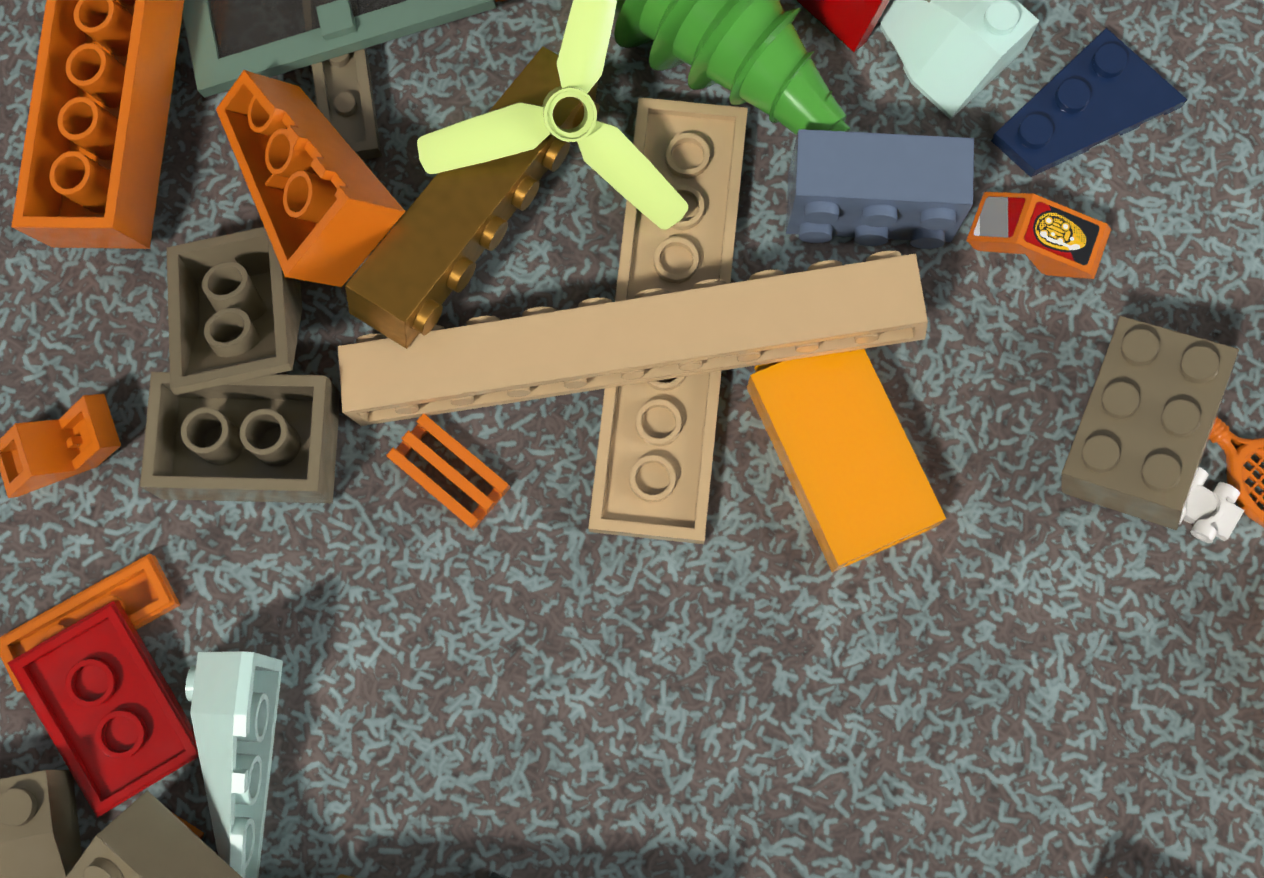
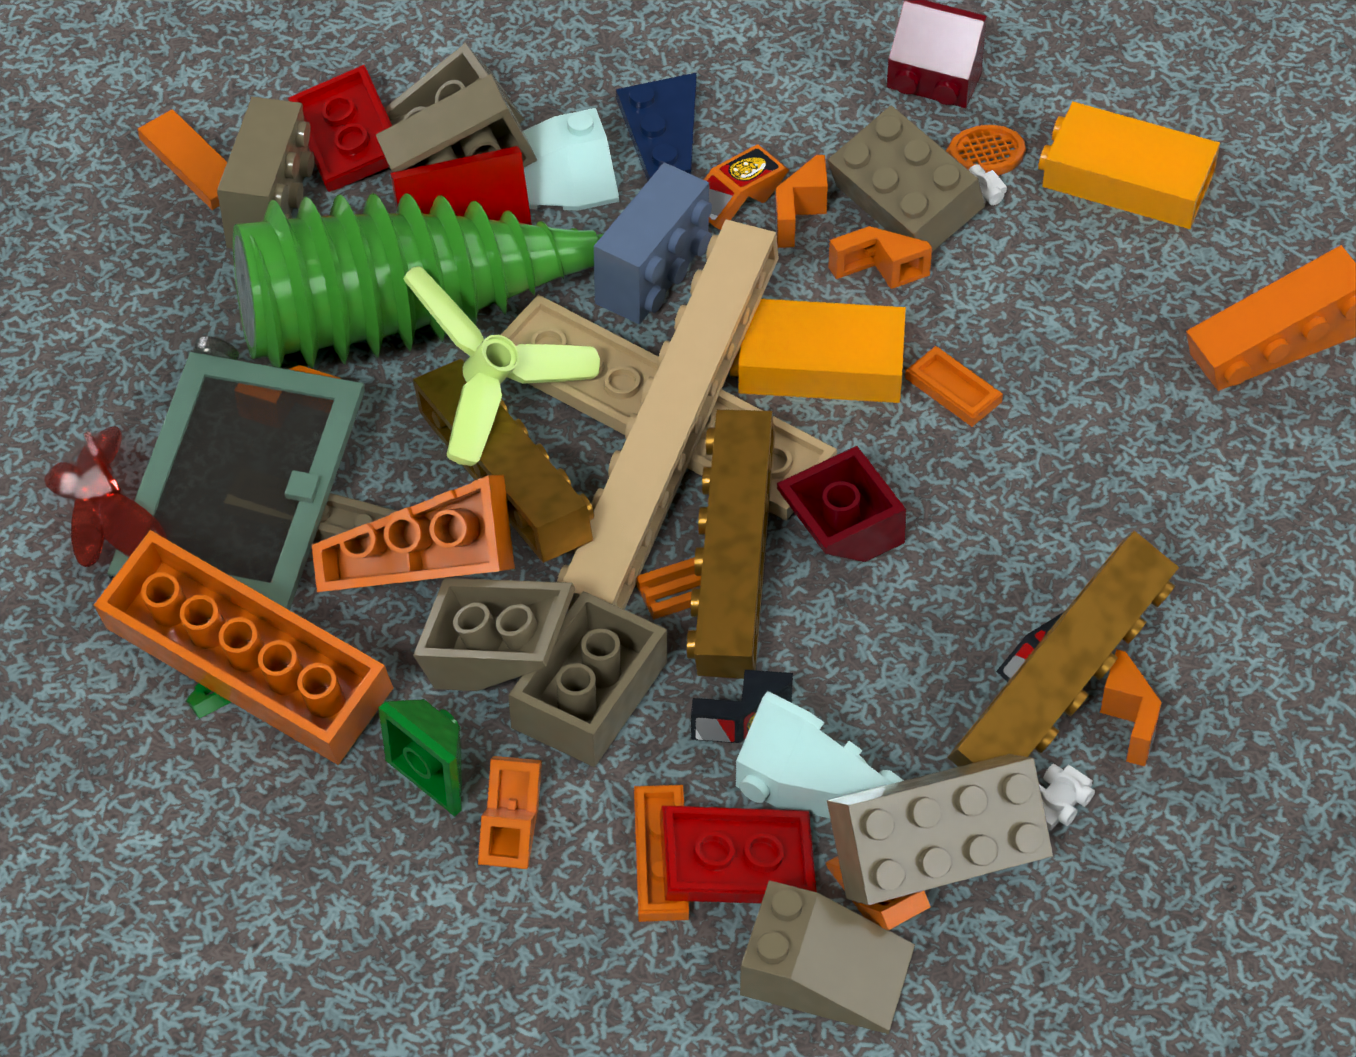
camera: 65 degrees left, 25 degrees down
(70, 326) = (424, 748): none -> green slope
(313, 627) = (731, 720): none -> black slope
(497, 497) = (733, 545): none -> pearl gold brick
(606, 592) = (847, 506): none -> dark red slope
(886, 623) = (954, 386): none -> orange tile
(1035, 466) = (896, 256): none -> orange slope
(1070, 310) = (800, 195): none -> orange slope

